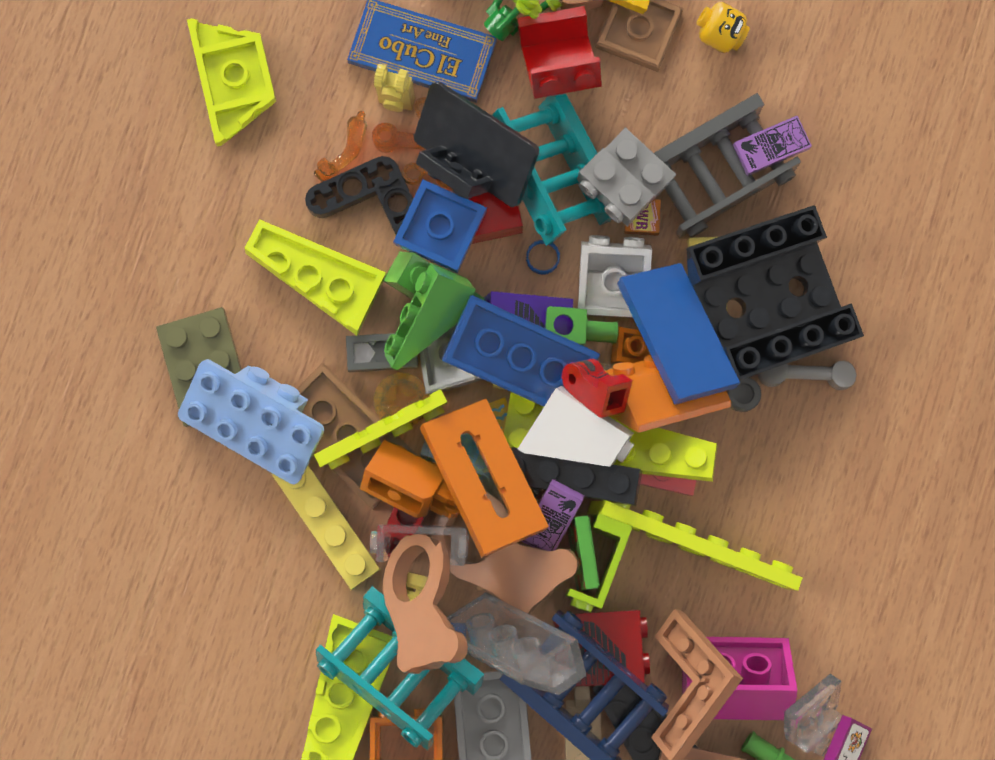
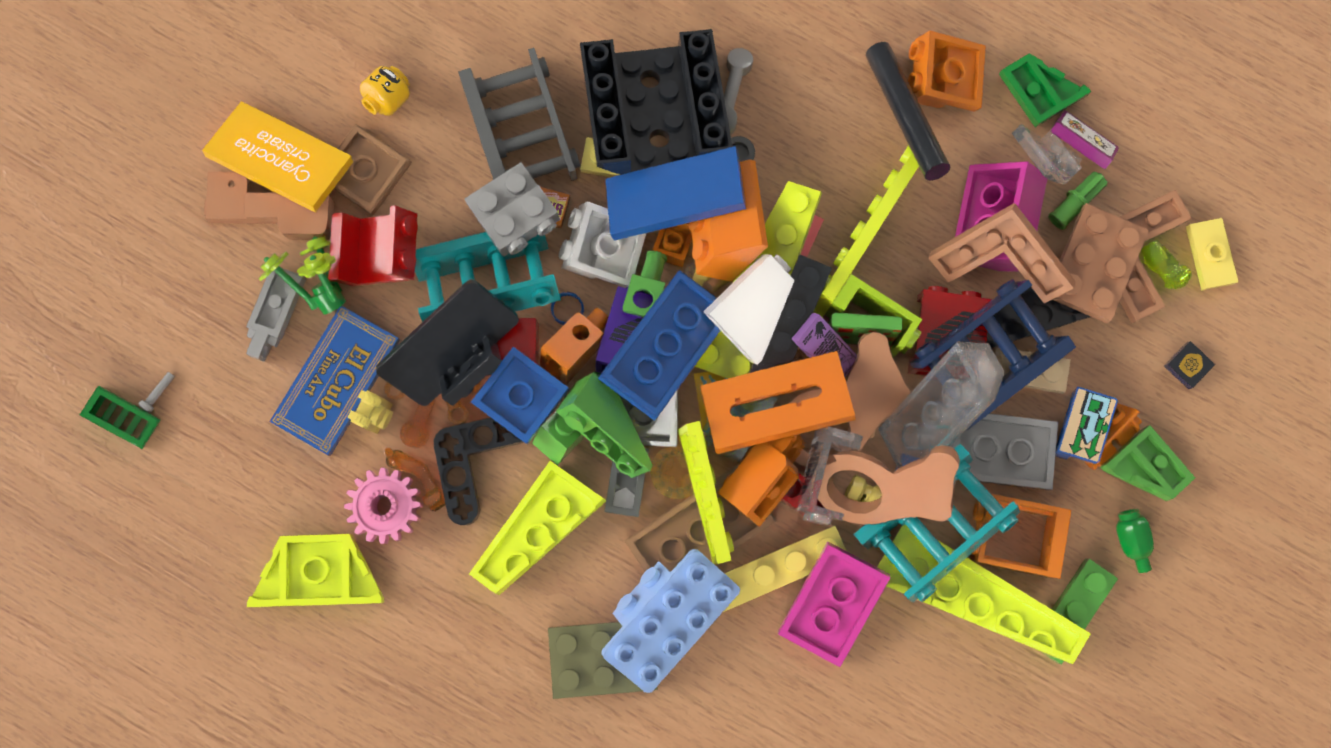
camera: 80 degrees left, 0 degrees up
(299, 581) = (834, 604): none -> dark pink plate
(312, 141) = (366, 500): none -> bright pink gear
(491, 267) = (564, 352): none -> orange torso
(597, 388) = (715, 277): red leg -> none
(772, 145) = (512, 70): medium lavender tile -> none
(824, 556) = (907, 111): none -> black piece
(881, 592) = (947, 71): none -> orange plate
(888, 698) = (1041, 89): none -> green wing

